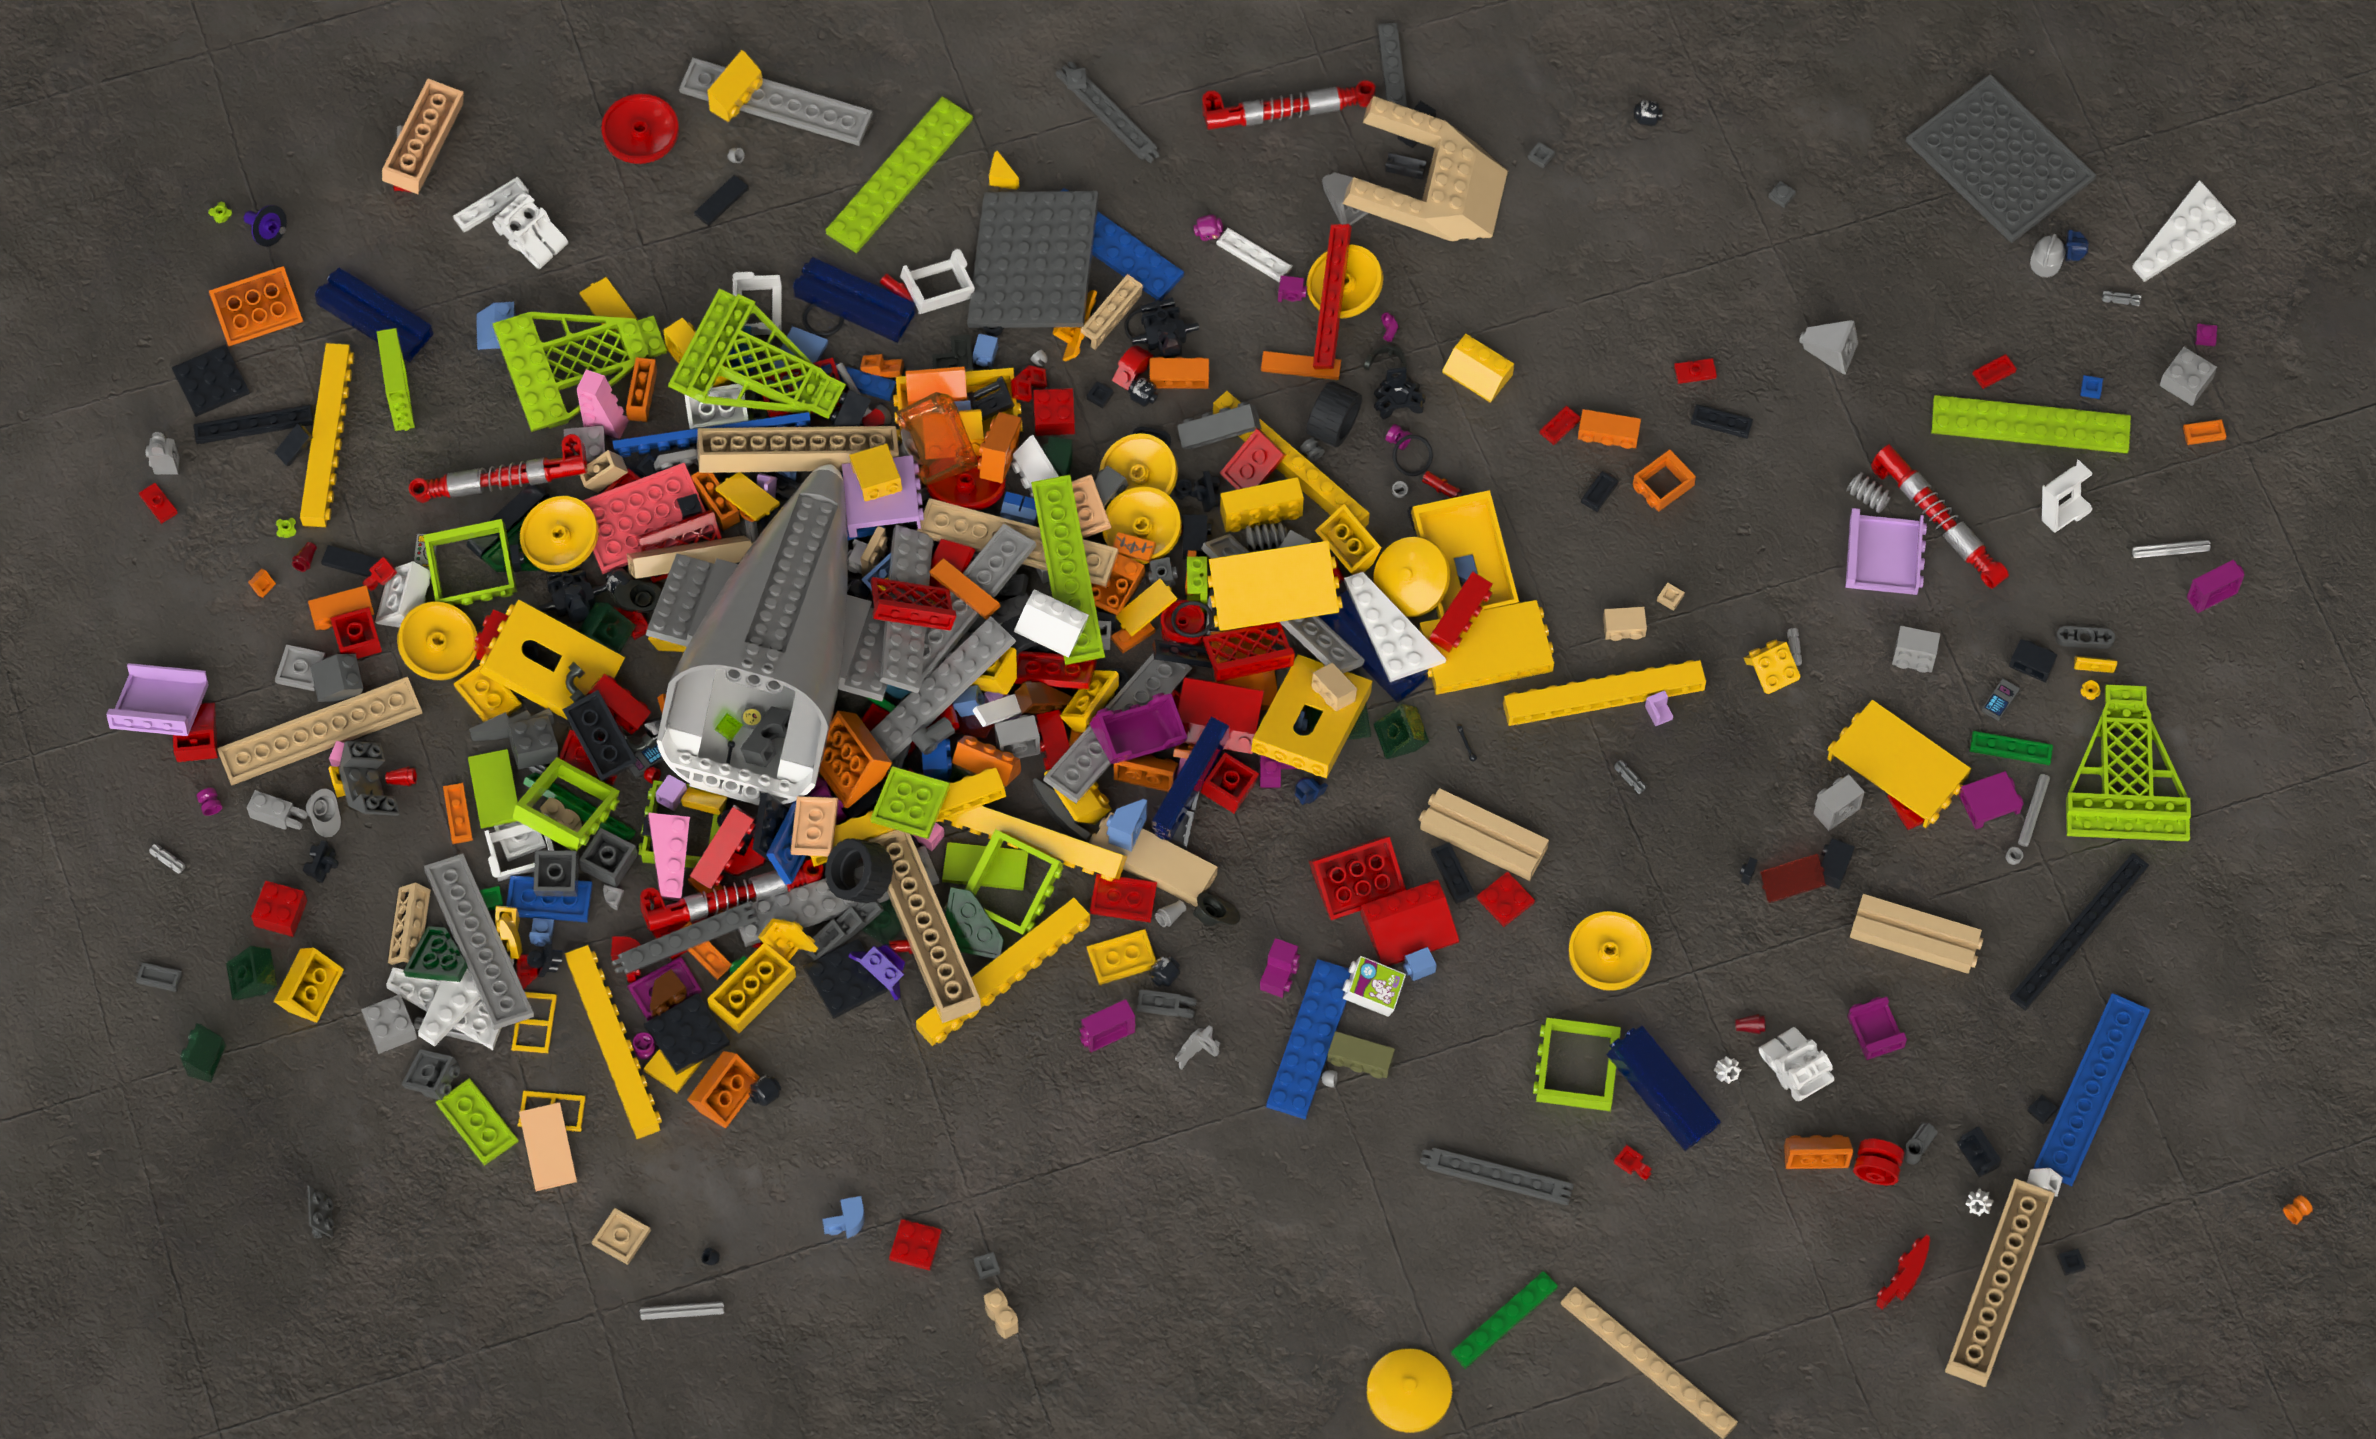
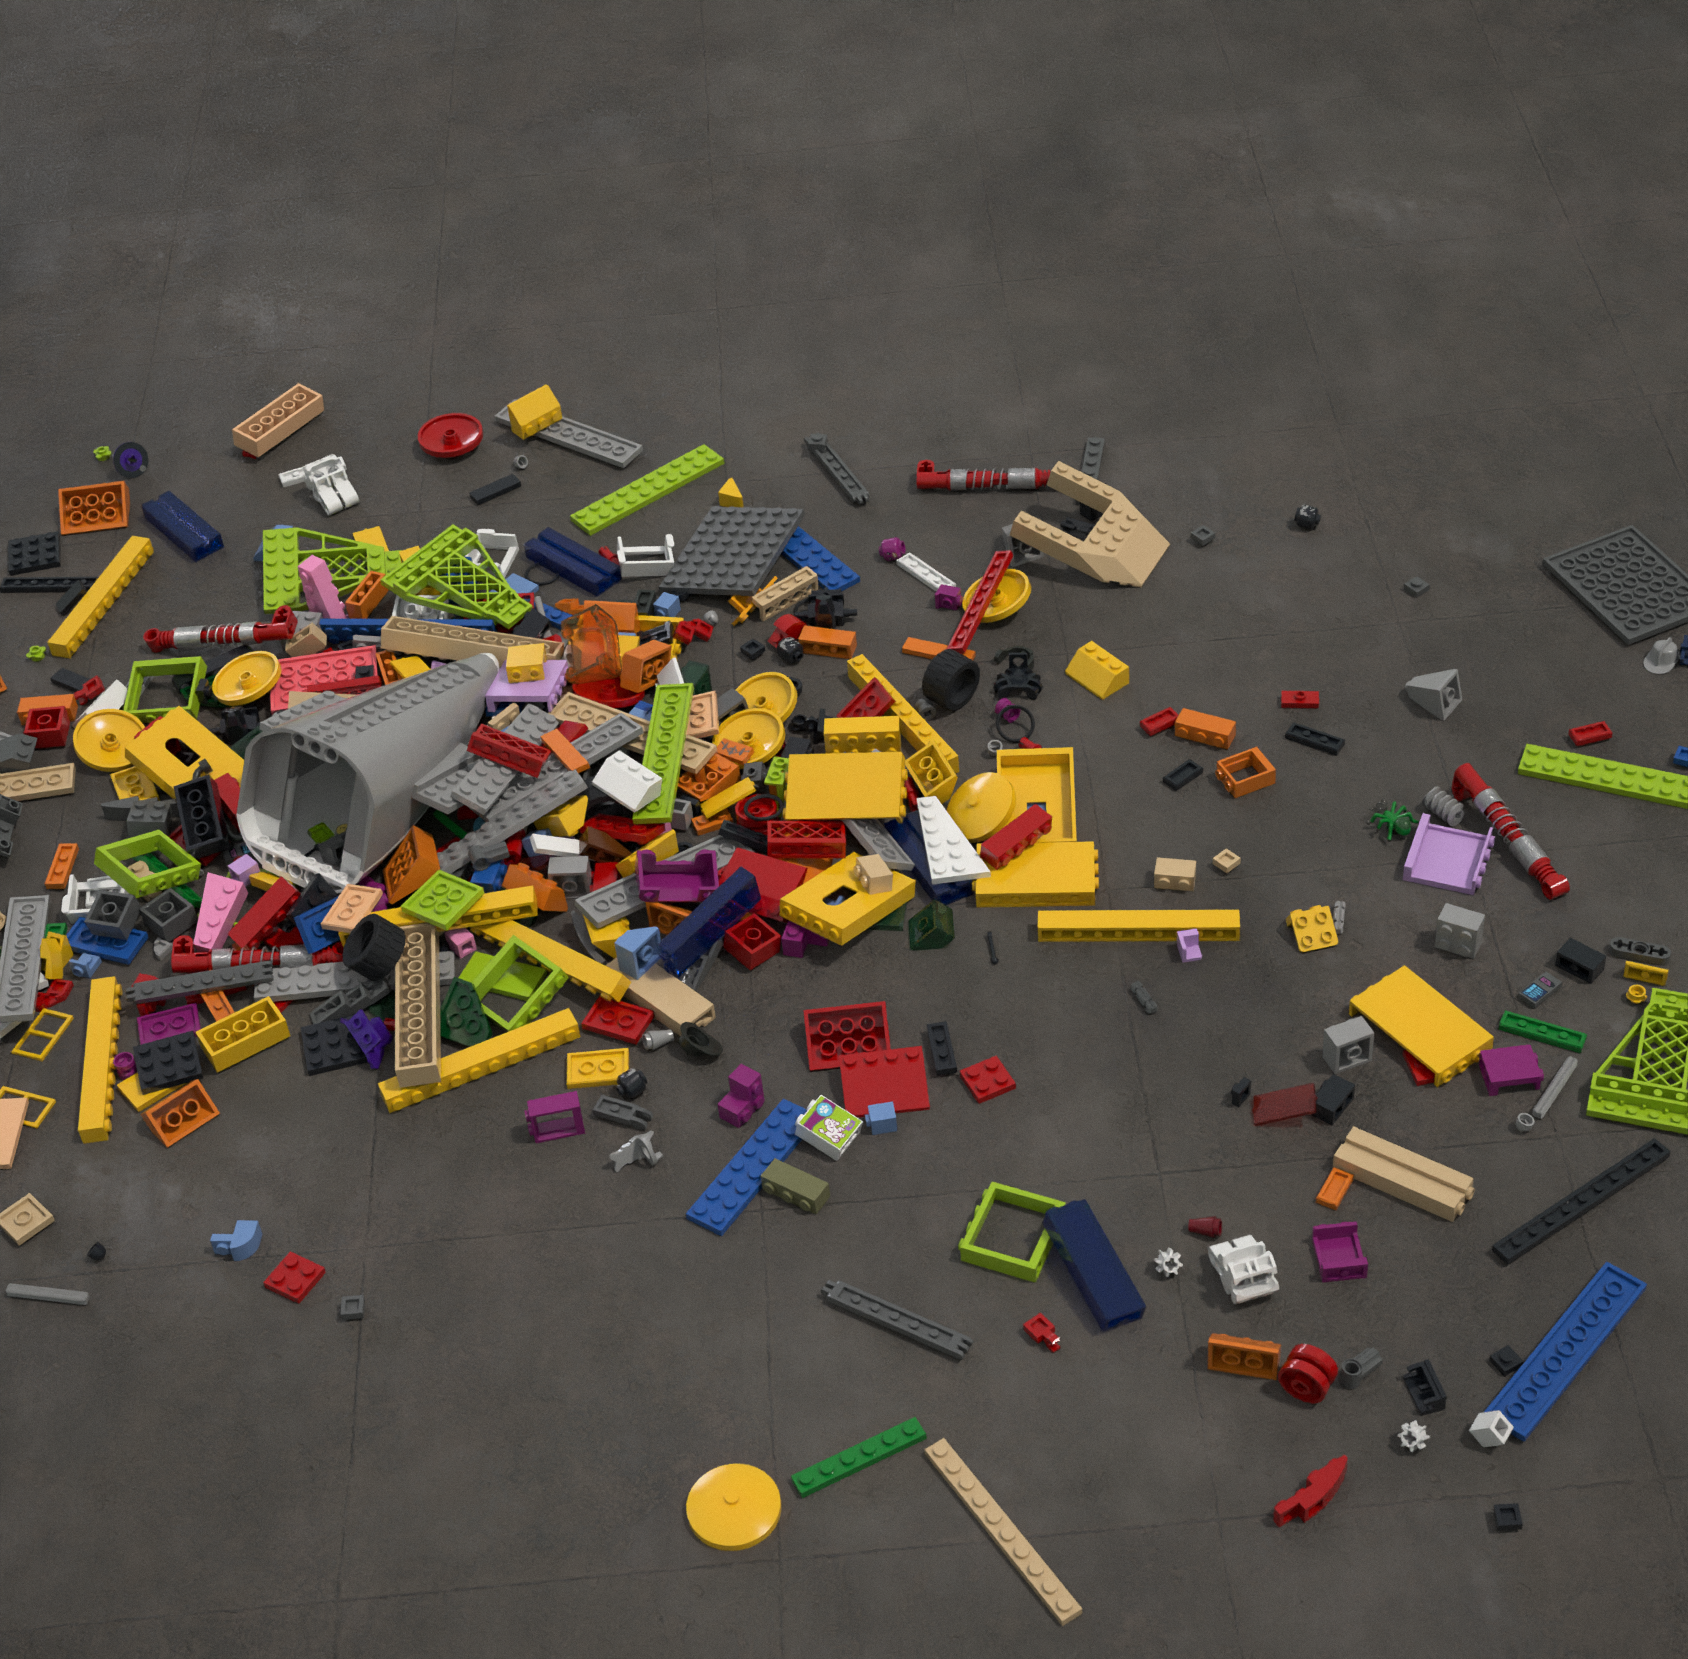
camera: 20 degrees right, 20 degrees down
(303, 559) = (38, 673): dark red cone -> none
(395, 379) = (167, 531): lime window -> none
(403, 776) = (31, 833): red cone -> none
(493, 788) = (98, 837): lime tile -> none
(546, 959) = (73, 983): black hips -> none
(666, 992) = (162, 1024): reddish brown slope -> none
(764, 1090) = (214, 1120): black head -> none
(786, 938) = (290, 998): yellow bracket -> none
(999, 1311) = (346, 1351): tan brick -> none
(1054, 412) = (708, 650): red brick -> none
(1218, 426) = (843, 676): dark grey brick -> none
(1309, 790) = (827, 960): dark blue piece -> none
(1329, 1078) = (758, 1202): light grey hinge -> none
(1390, 325) = (1029, 634): magenta arm -> none
(1483, 834) = (984, 1021): tan brick -> none
(1609, 950) = (1076, 1135): yellow dish -> none
(1825, 521) = (1395, 822): none -> animal
(1857, 959) = (1334, 1188): none -> orange tile
(1999, 1283) = (1416, 1522): tan brick -> none
(2074, 508) = (1649, 847): white piece -> none

